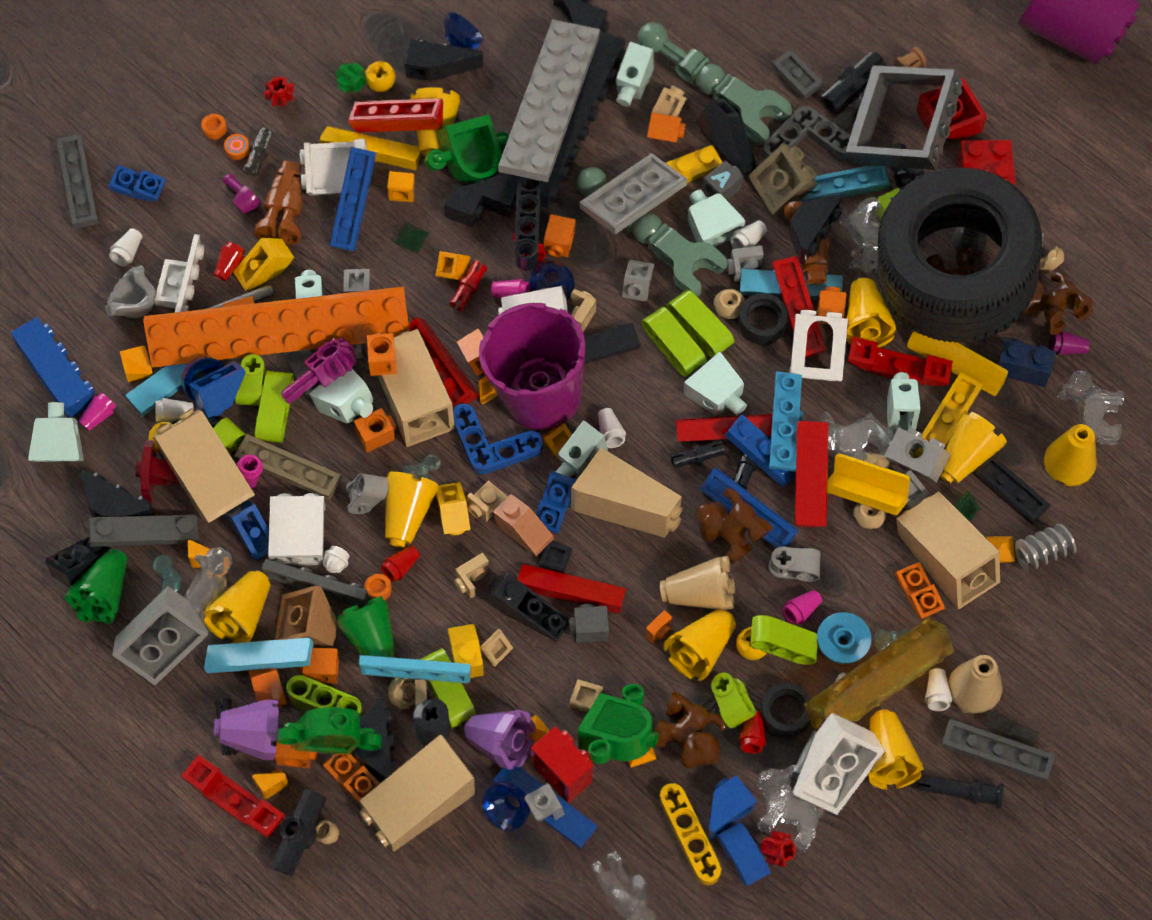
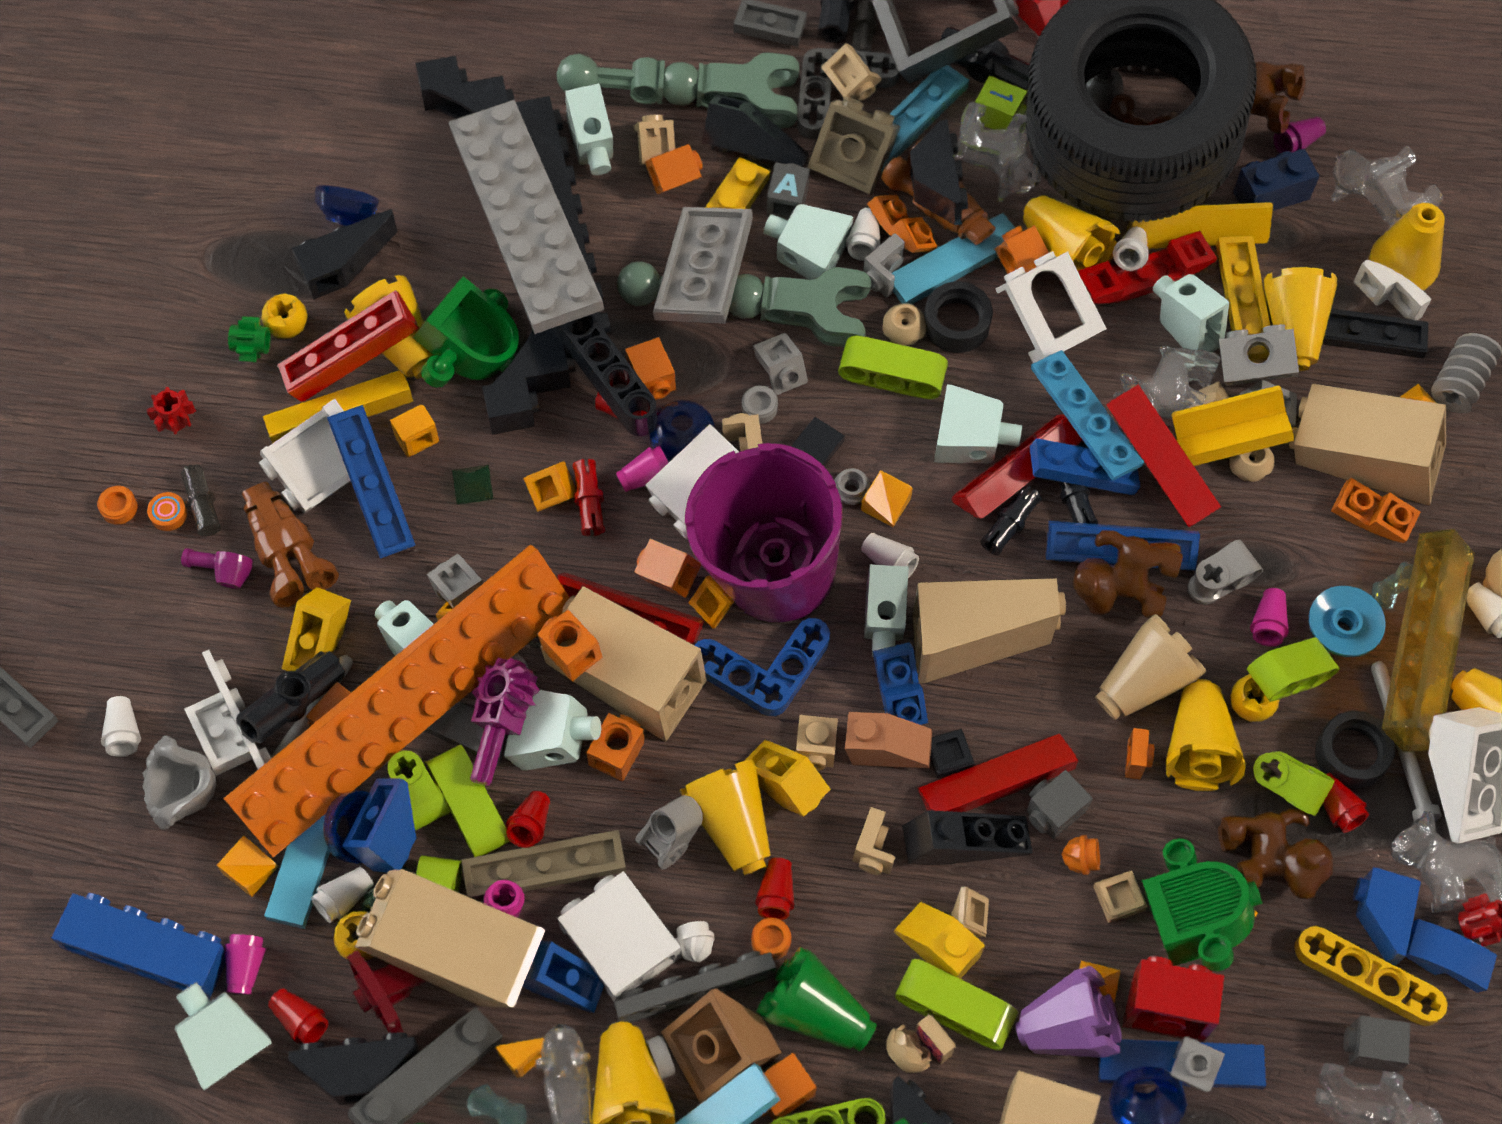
camera: 35 degrees left, 0 degrees up
(104, 458) = (300, 1018): none -> red cone
(137, 185) = (72, 640): blue slope -> none
(229, 259) = (267, 656): red cone -> none
(232, 287) = (290, 697): none -> black piece
(269, 605) = (661, 1056): none -> light grey tile
(296, 437) = (528, 821): none -> red cone
(415, 669) = (912, 1010): medium azure tile -> none
(431, 463) = (714, 741): clear light blue piece -> none
(431, 721) = (981, 1061): black piece -> none
(556, 439) = (842, 611): light orange slope -> none
(582, 660) = (1082, 855): none -> orange plate
(608, 296) = (760, 401): none -> light grey tile
(621, 369) = (852, 477): none -> light grey plate
(635, 395) = (886, 498): none -> light orange slope
(660, 869) = (1378, 1043): none -> dark grey brick
(674, 341) = (880, 407): lime beam -> none
(773, 240) = (893, 217): none -> orange slope
(797, 298) = (977, 267): red plate -> none
(815, 136) = (851, 74): none -> tan bracket
(899, 344) = (1131, 250): none -> white cone
(967, 506) = (1345, 378): clear green slope -> none
(1041, 467) = (1384, 283): none -> white slope

